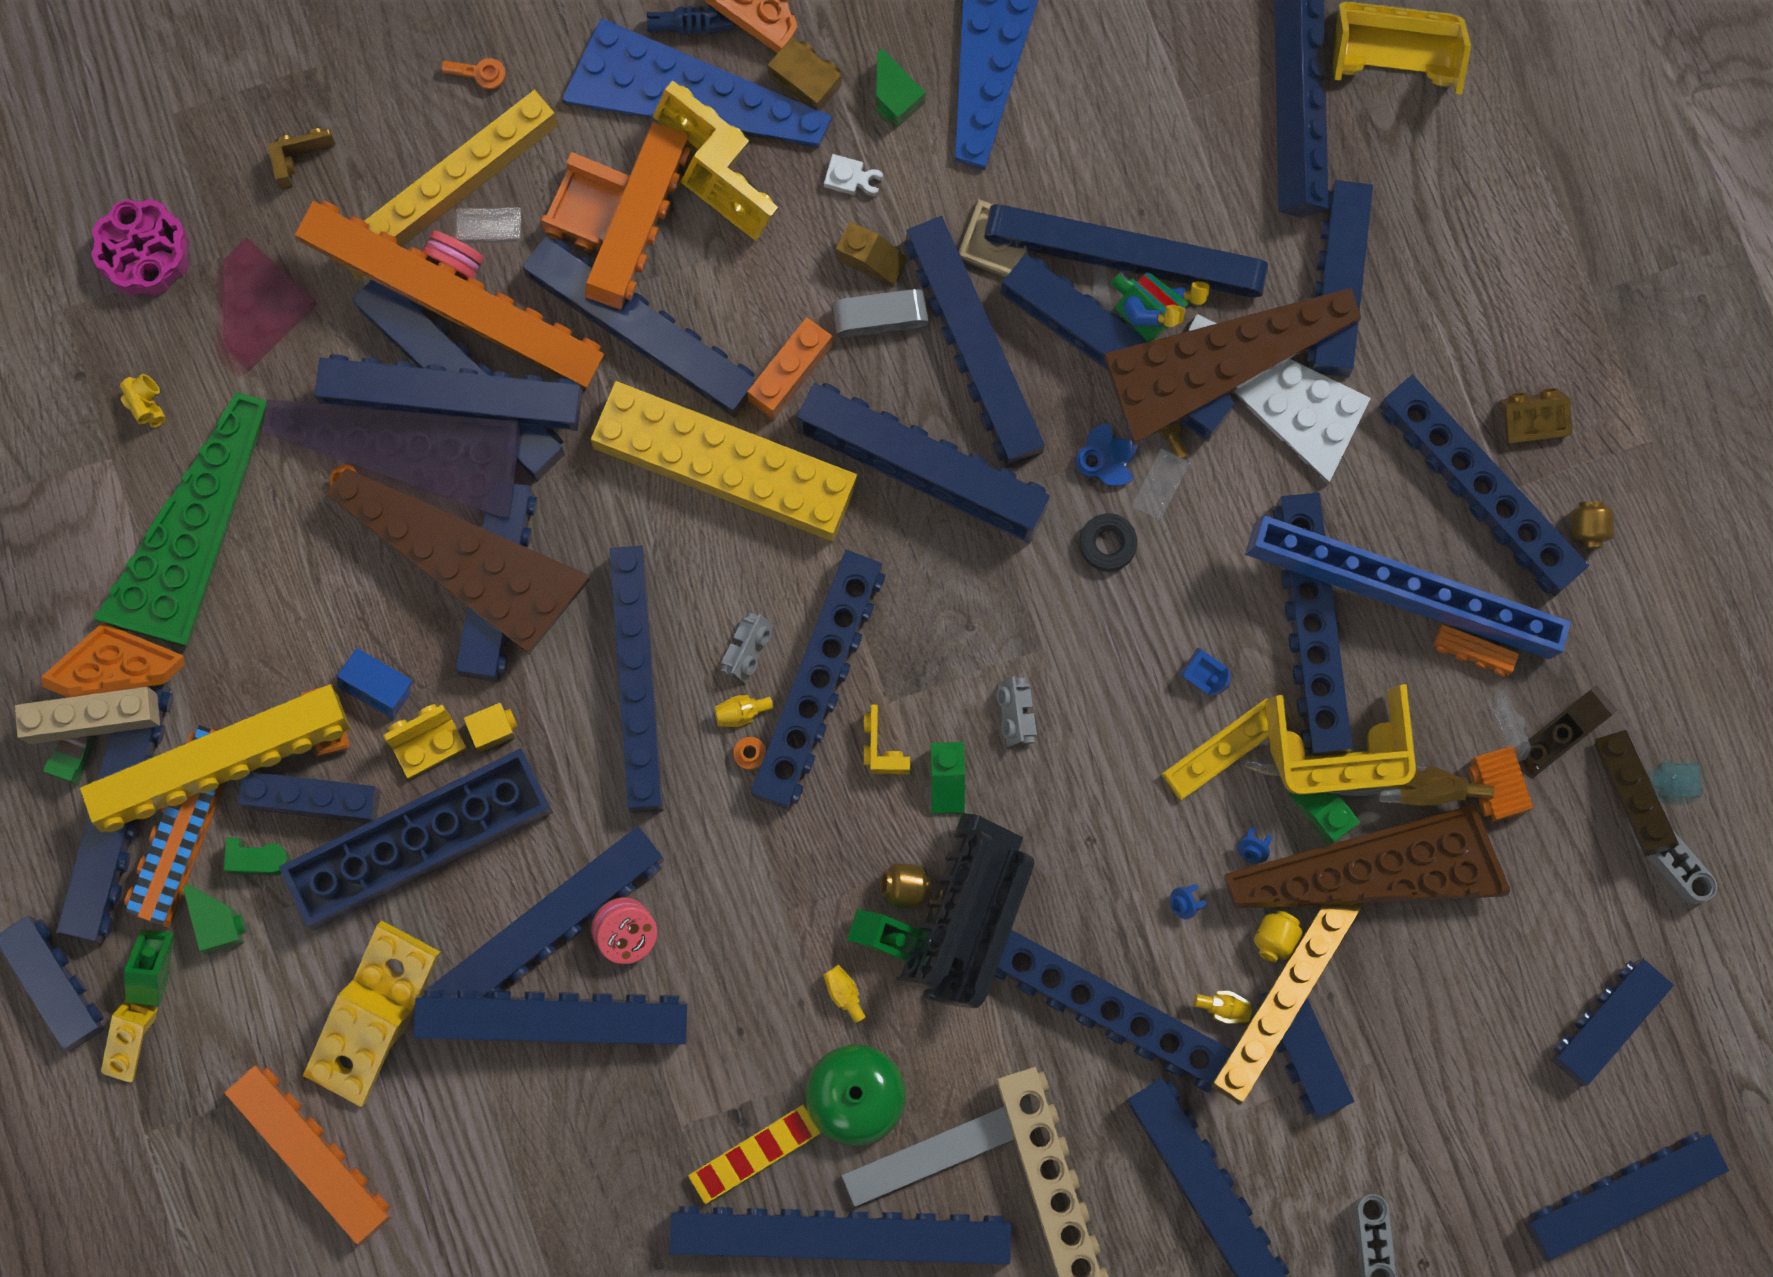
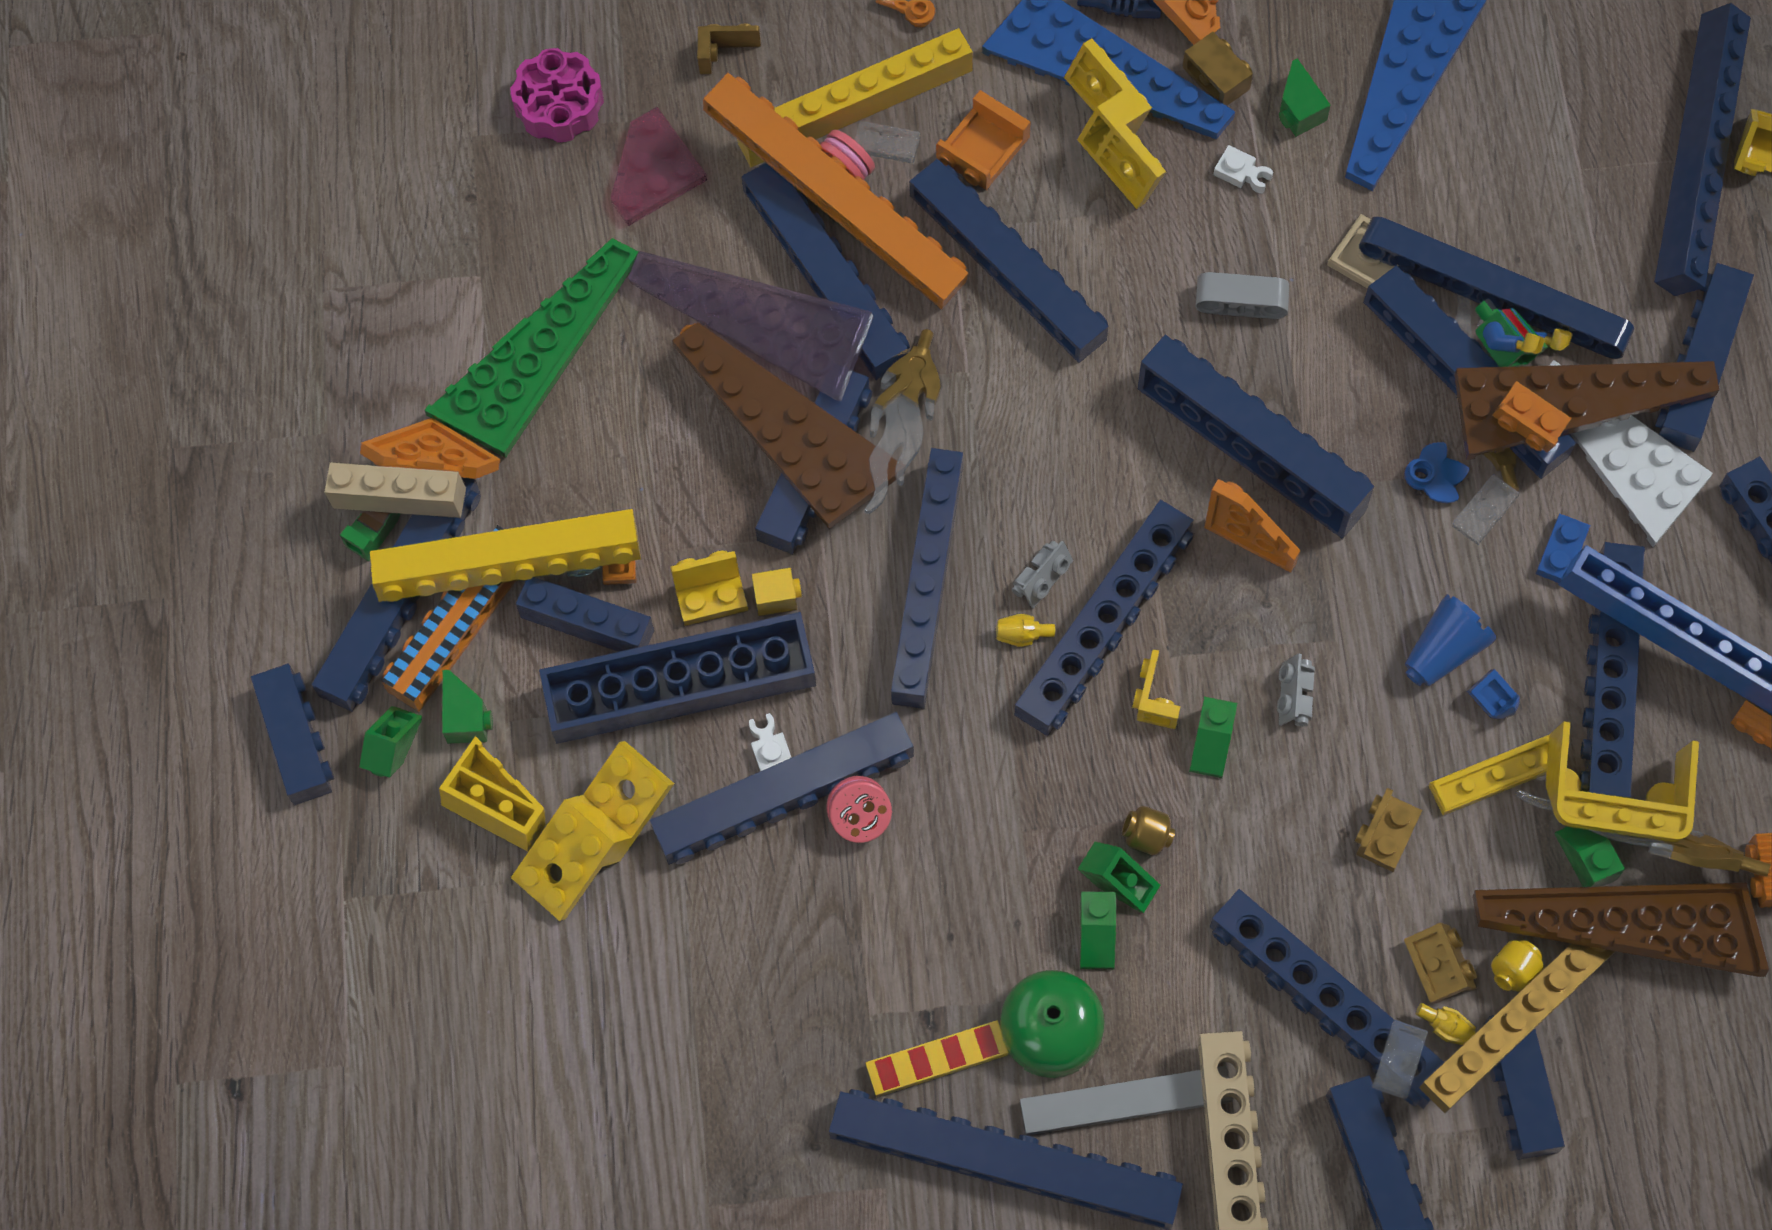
camera: 20 degrees right, 10 degrees down
(125, 1040) = (349, 803): yellow bracket -> none
(139, 398) = (520, 227): yellow plate -> none
(253, 860) = (515, 663): green leg -> none
(264, 1003) = (492, 798): none -> yellow wedge
(308, 1154) = (496, 953): orange brick -> none
(374, 683) = (673, 526): blue hinge -> none
(448, 392) = (805, 271): dark blue brick -> none
(525, 887) = (769, 748): none -> white plate
(550, 1018) = (766, 874): dark blue brick -> none
(567, 507) = (899, 403): none -> clear piece
(637, 216) = (1028, 158): orange brick -> none
(724, 461) = (1061, 397): yellow brick -> none
(749, 763) = (1017, 680): orange plate -> none
(790, 368) = (1143, 326): orange brick -> none
(844, 992) = (1063, 921): yellow piece -> none
(870, 254) = (1244, 239): pearl gold slope -> none
(879, 995) = (1097, 930): none -> green slope
(927, 555) = (1244, 523): none -> orange plate
(969, 914) = (1206, 868): black piece -> none
(974, 342) = (1328, 340): dark blue brick -> none
(1118, 525) = (1421, 533): black tyre -> none
(1132, 830) = (1388, 832): none -> pearl gold bracket
(1150, 632) = (1447, 642): none -> blue cone
(1183, 902) = (1426, 911): blue plate -> none
(1187, 391) = (1531, 417): none -> orange bracket
(1187, 1057) = (1400, 1059): none -> clear plate
(1207, 948) = (1441, 962): none -> pearl gold bracket
(1242, 506) = (1562, 547): none -> blue plate
(1254, 849) = (1509, 874): blue plate -> none

